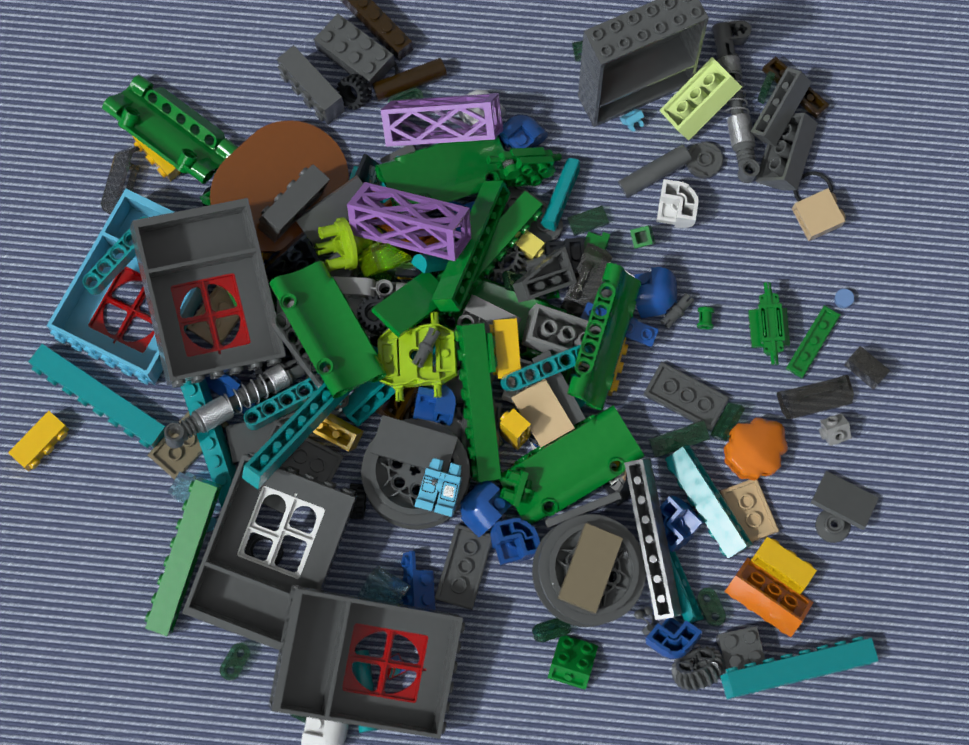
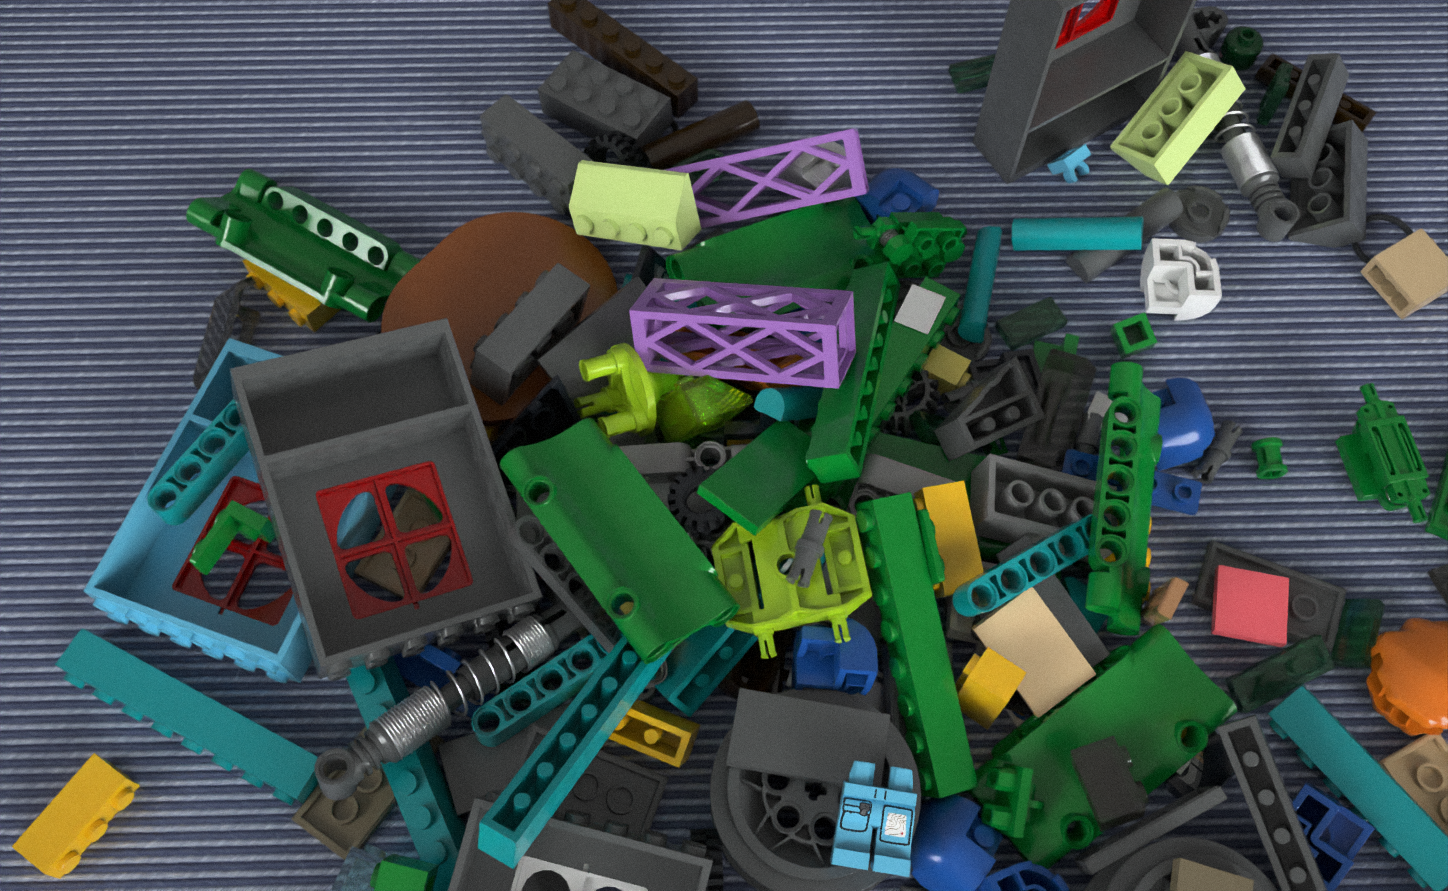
camera: 10 degrees left, 10 degrees down
(122, 299) = (226, 525): none -> green bracket
(360, 129) = (634, 205): none -> yellowish green slope
(517, 211) = (920, 309): none -> white sticker
(566, 484) = (1108, 783): none -> clear smoke brick
(608, 396) = (1163, 602): none -> medium nougat tile
(623, 168) = (1078, 233): none -> teal brick
(671, 400) = (1250, 606): none -> coral tile
(756, 50) = (1241, 48): none -> dark green head

